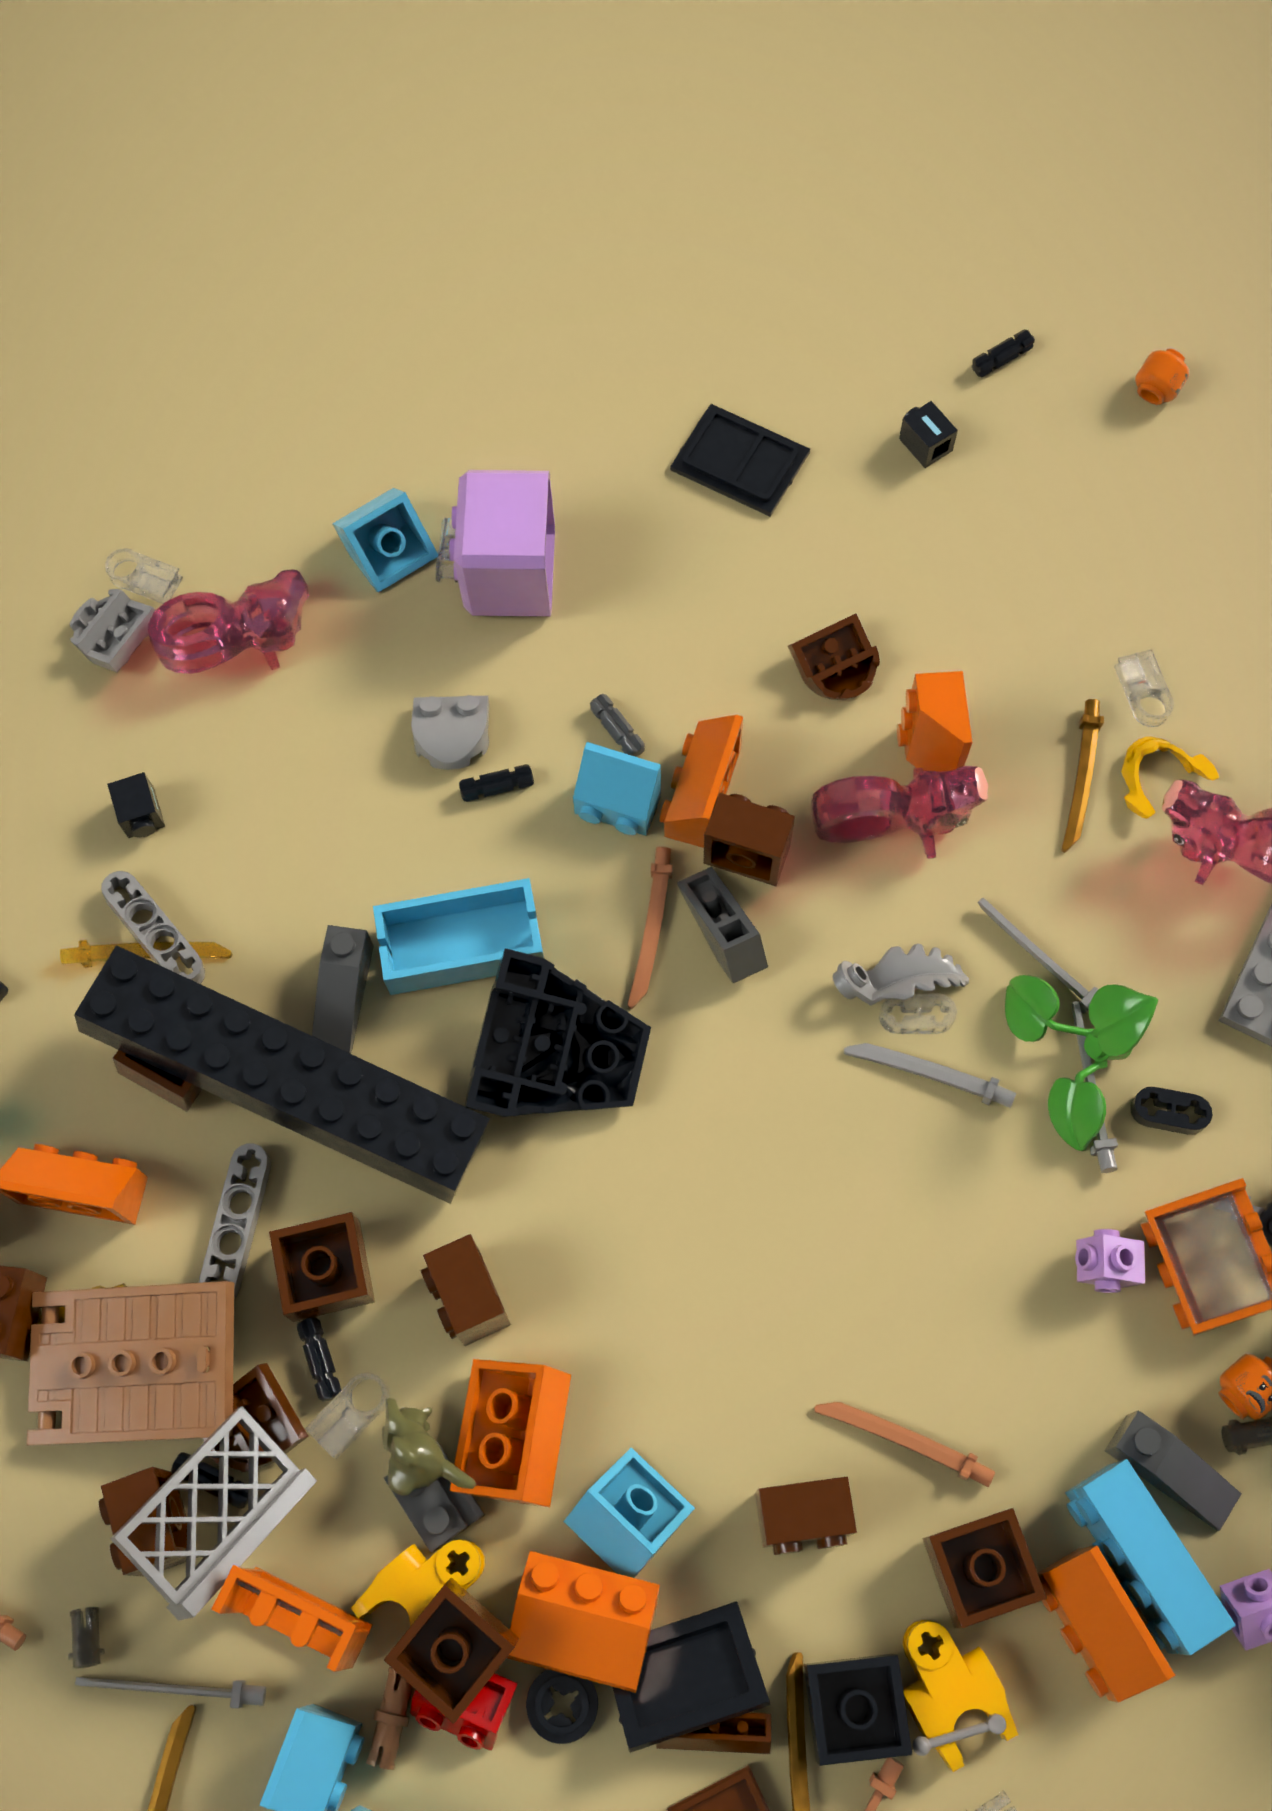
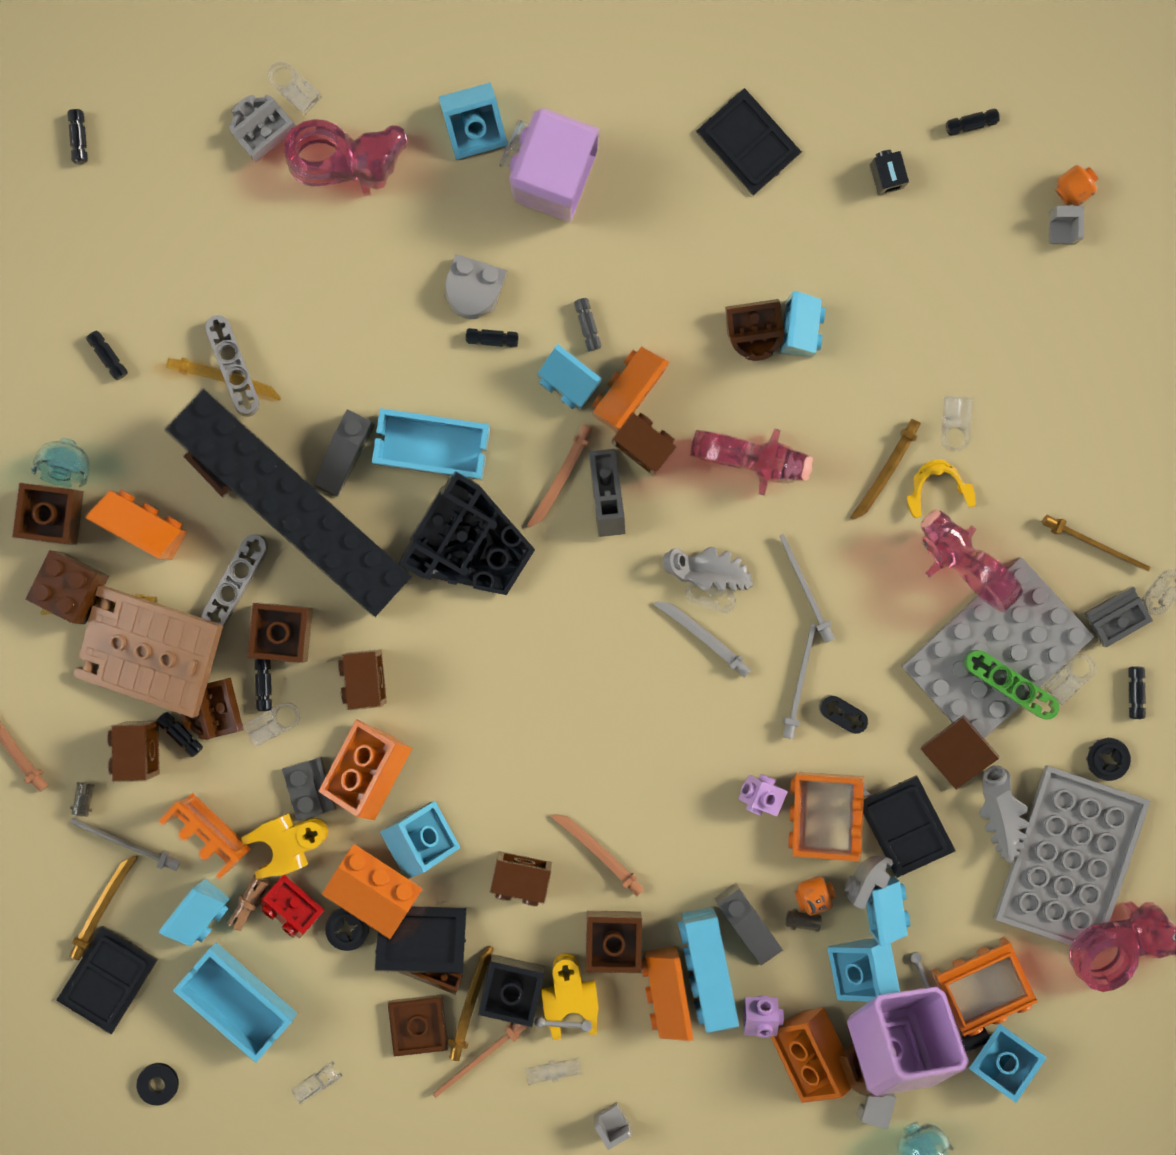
camera: 15 degrees right, 20 degrees up
(136, 805) = (244, 271): black brick -> none
(231, 1546) = (183, 783): light grey fence -> none
(415, 1455) = (303, 765): olive animal -> none
(452, 1650) = (291, 885): reddish brown brick -> none
(895, 629) = (802, 325): none -> medium azure slope
(936, 722) = (797, 412): orange slope -> none
(1119, 1023) = (822, 661): bright green plant -> none
(1170, 421) = (1066, 224): none -> light grey panel

